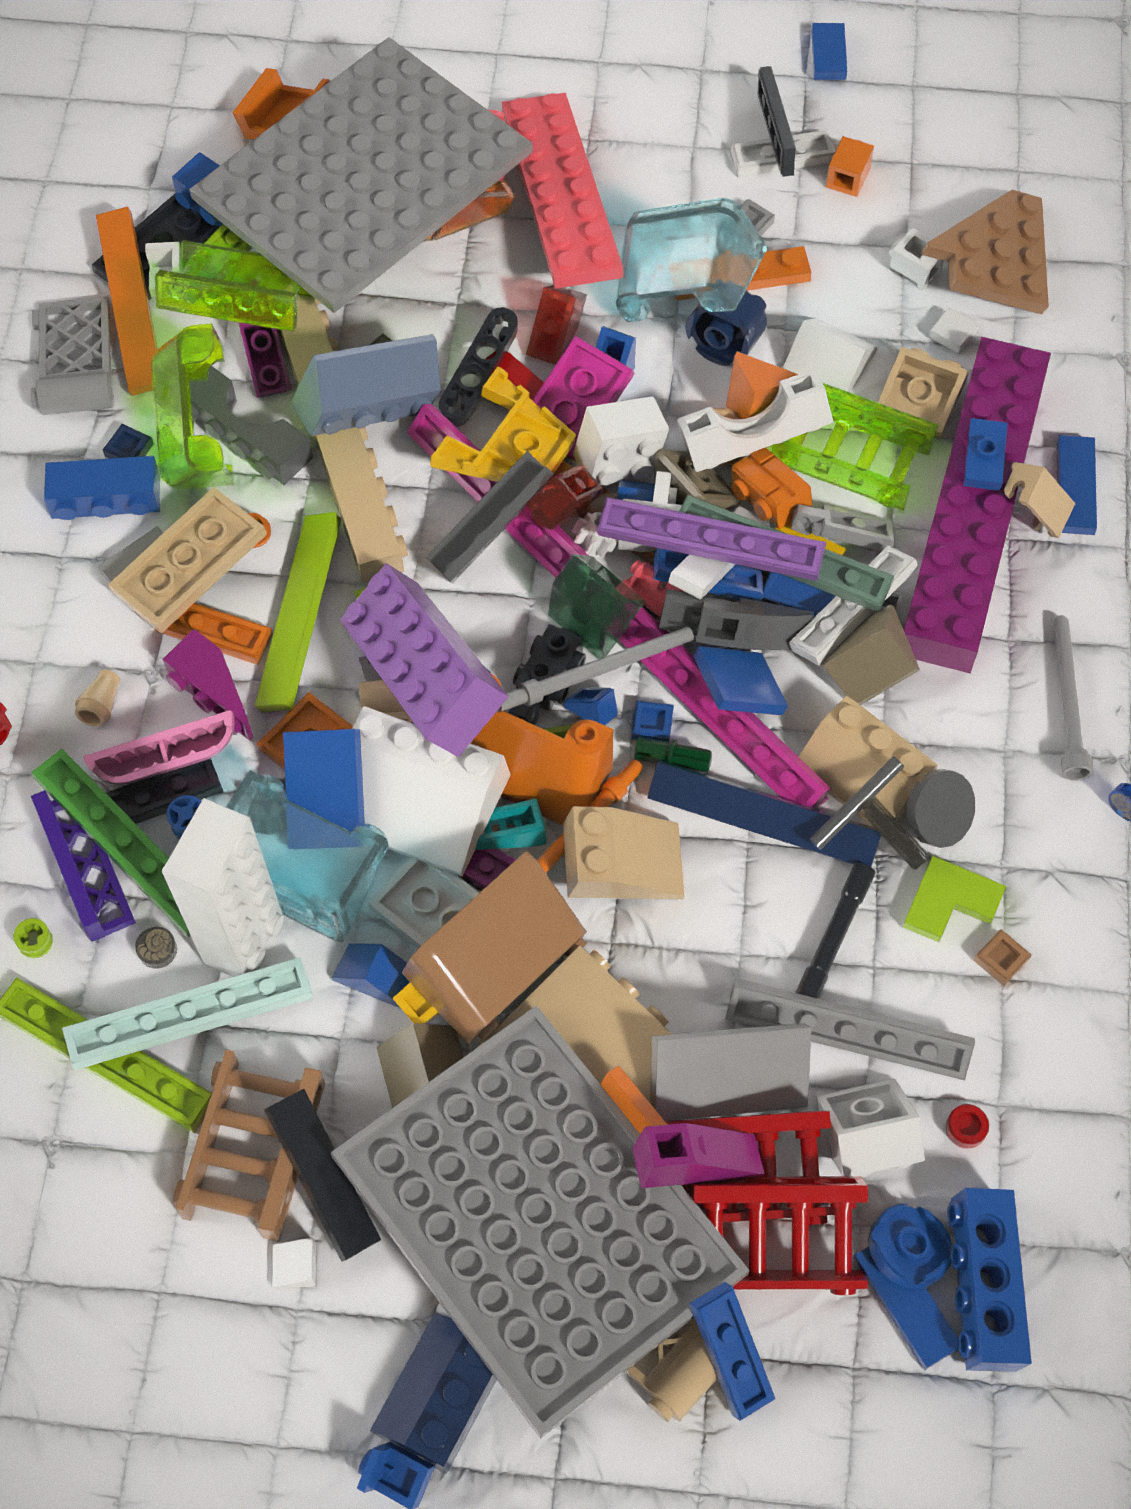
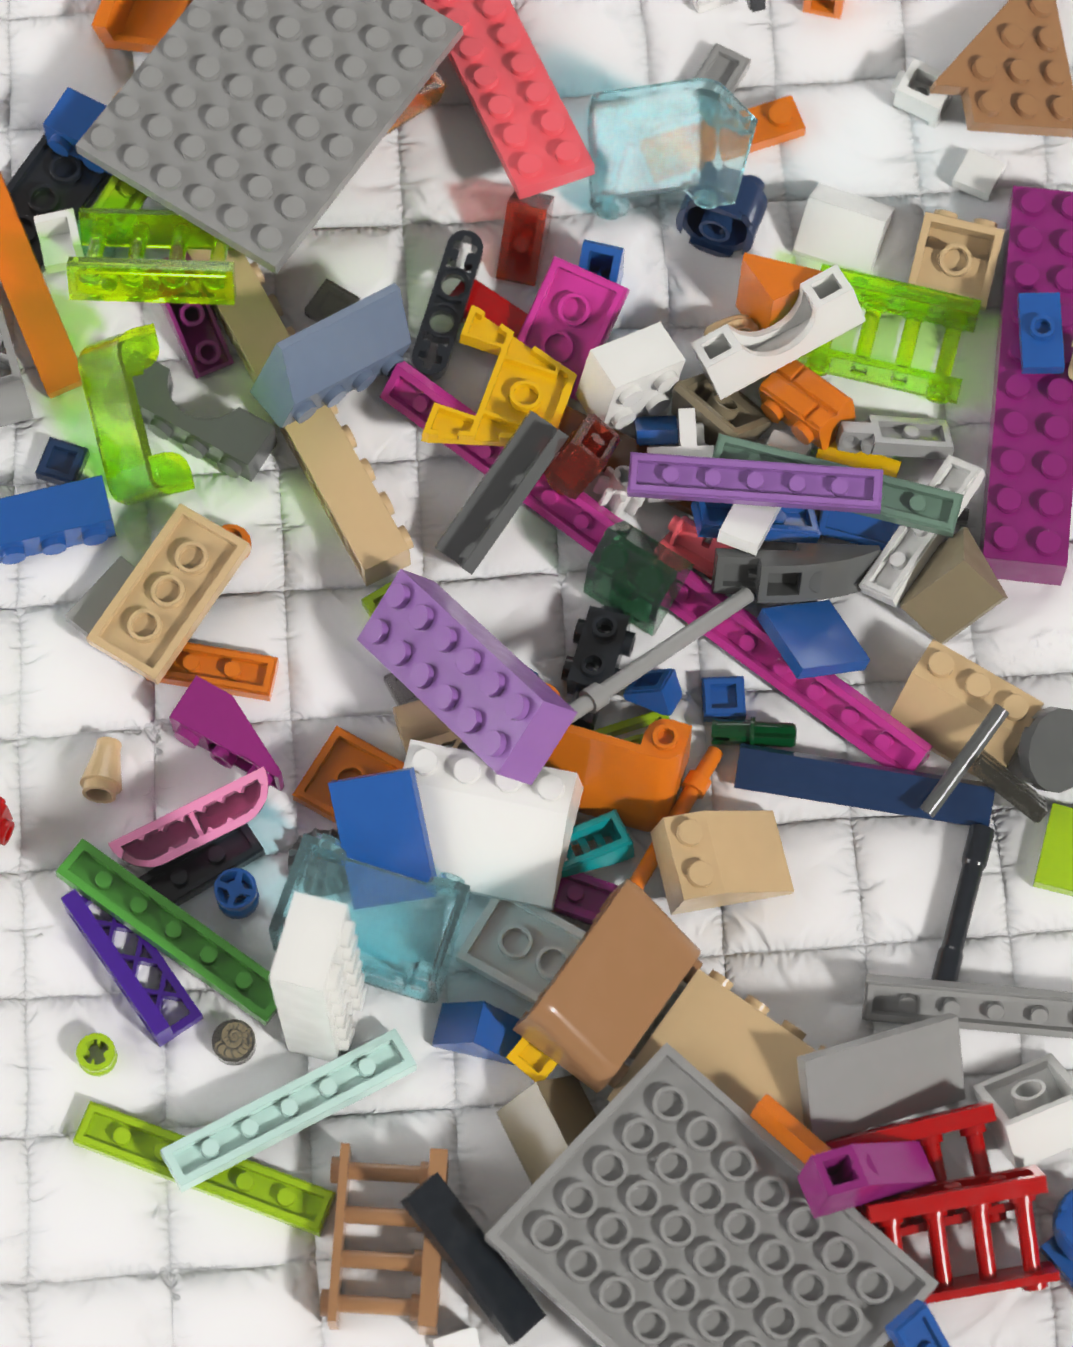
camera: 10 degrees left, 5 degrees up
(298, 613) = (304, 633): lime tile -> none

